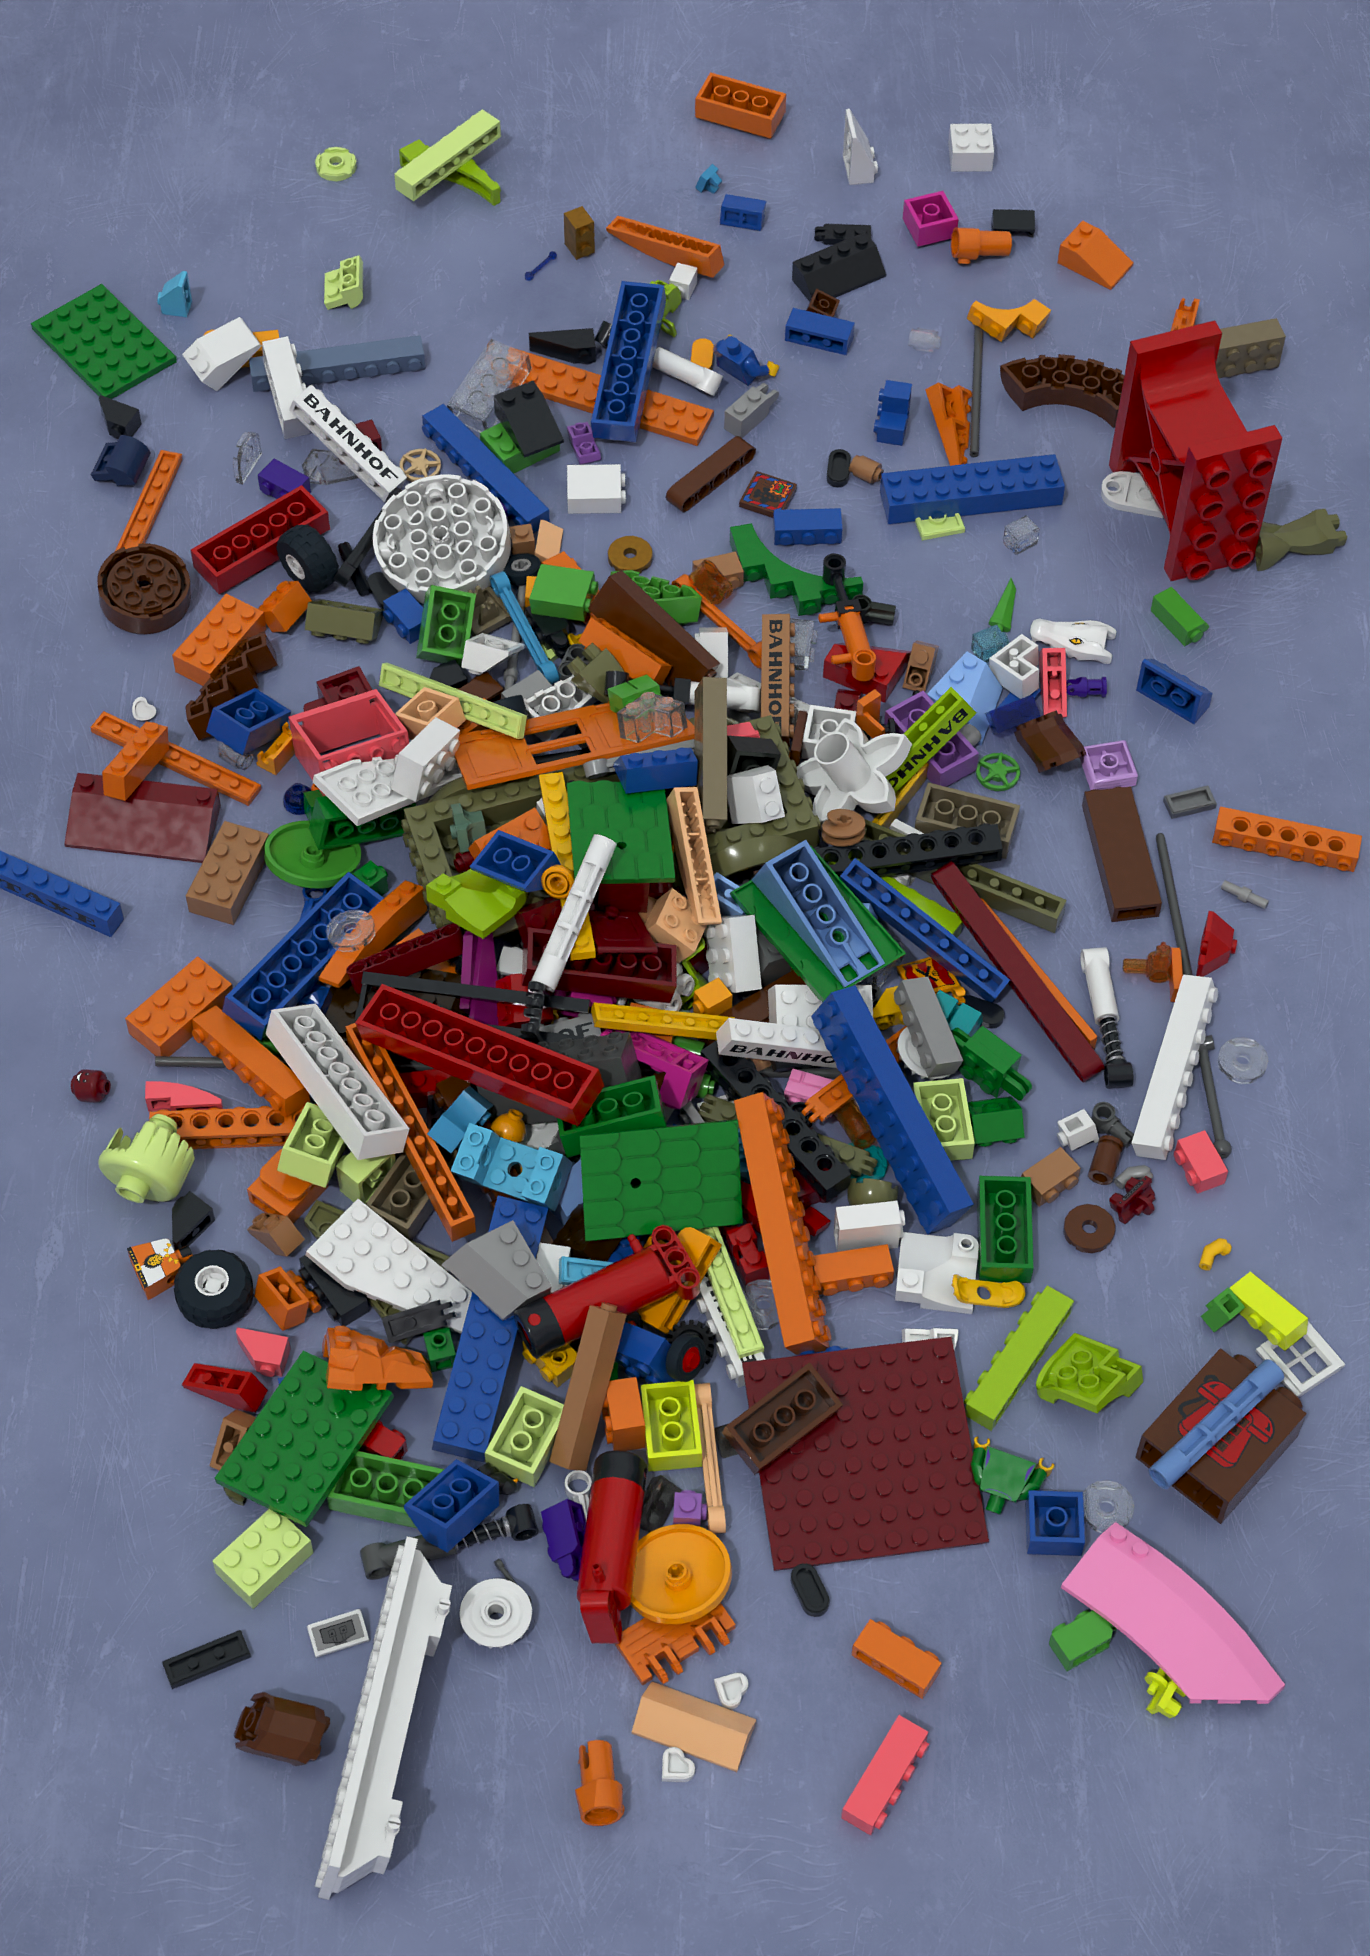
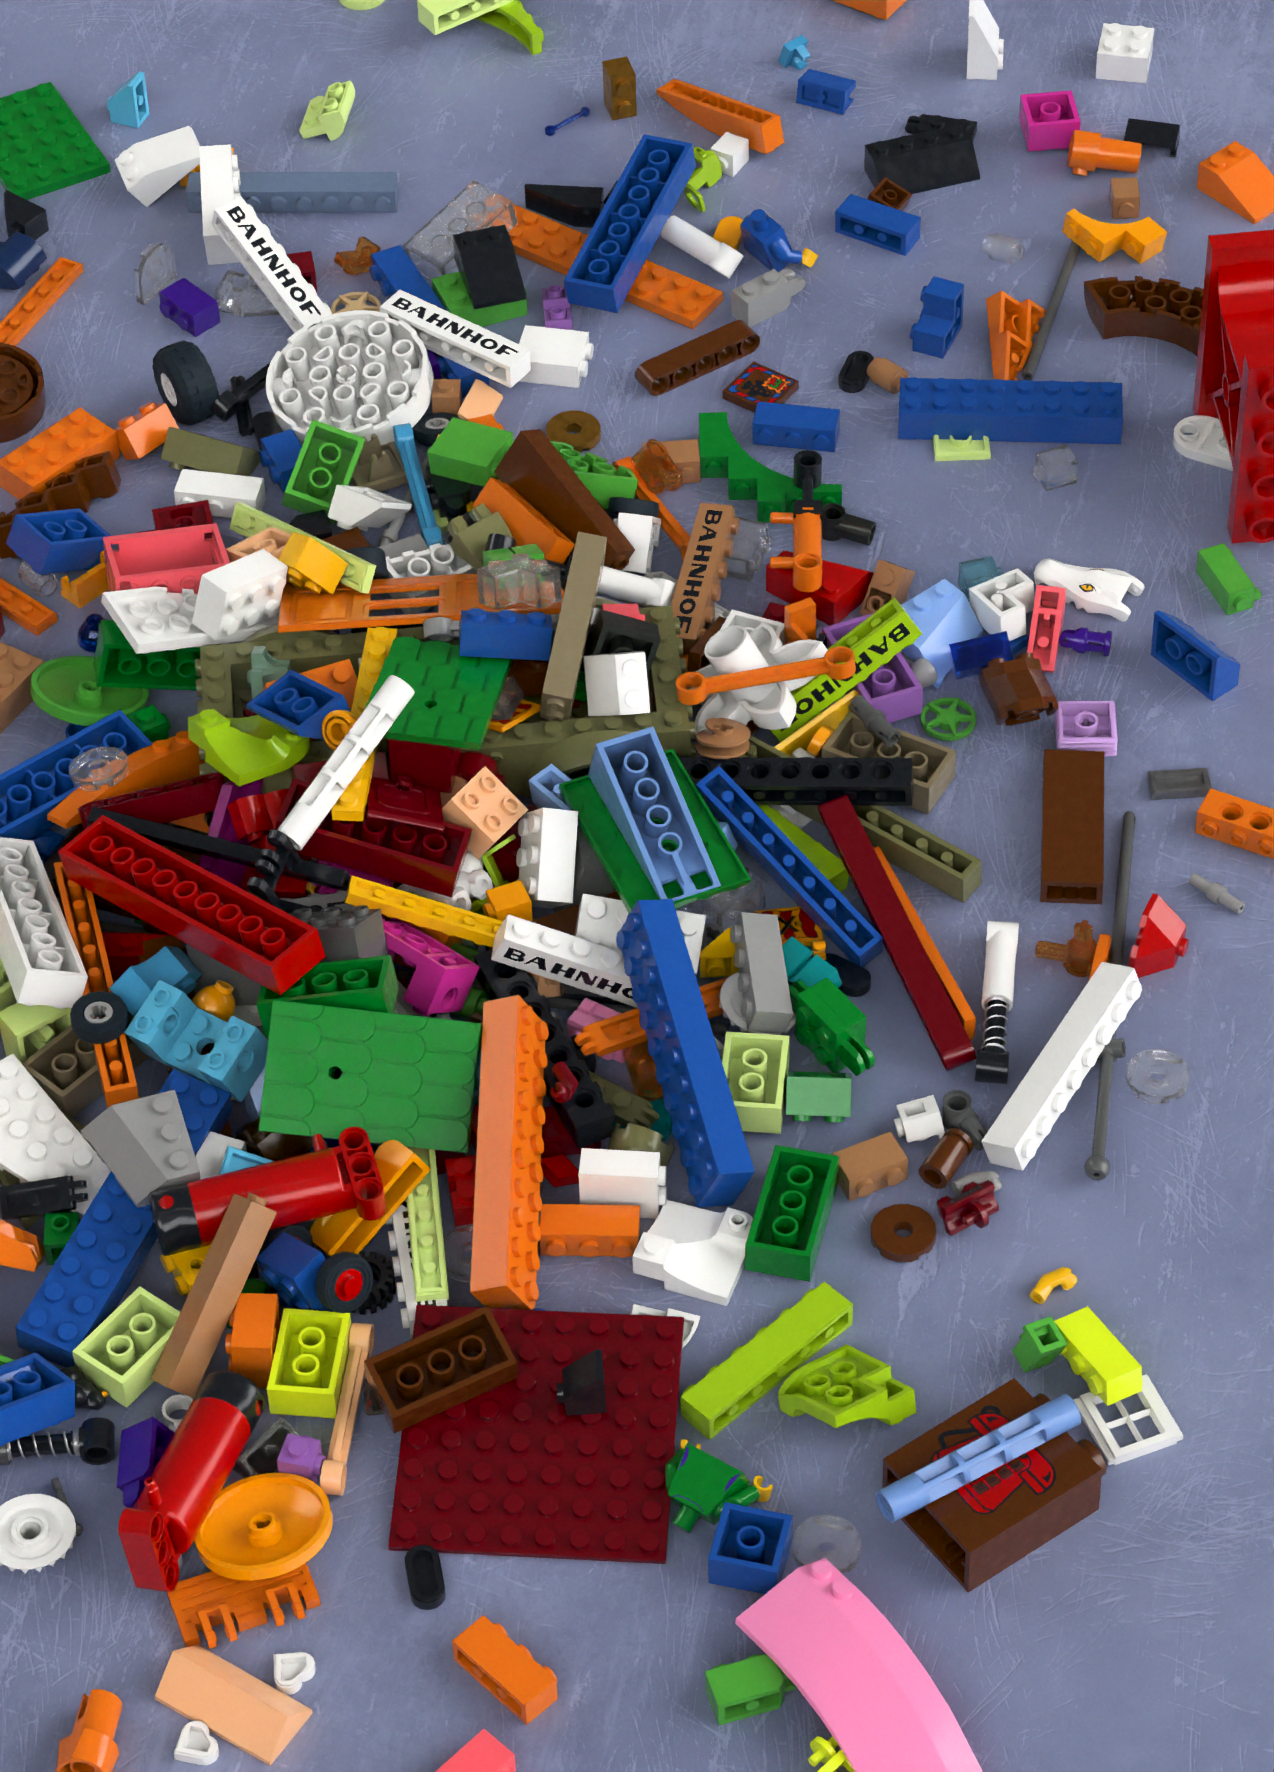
camera: 15 degrees right, 10 degrees down
(253, 540) = (125, 361): red brick -> none
(363, 652) = (220, 491): none -> white brick
(410, 419) = (358, 260): none -> clear orange bracket
(427, 1150) = (99, 1004): none -> black bush
(474, 721) = (311, 564): none -> yellow brick
(500, 956) = (256, 814): none -> red brick
(521, 487) = (461, 339): none -> white brick
(693, 854) = (521, 732): light nougat slope -> none
(703, 621) = (633, 506): none -> black bush
(810, 1154) = (567, 1083): none -> dark red arm
(867, 771) = (765, 675): none -> orange piece
(896, 1412) = (583, 1386): none -> black slope
(911, 810) = (819, 740): none -> light orange tile
(952, 790) = (874, 721): none -> dark grey pin
(1001, 1294) = (768, 1288): yellow piece -> none
(1003, 613) = (1010, 548): bright green bar -> none
(1006, 281) = (1124, 198): none -> medium nougat brick
(1200, 1162) = (1065, 1178): coral brick -> none

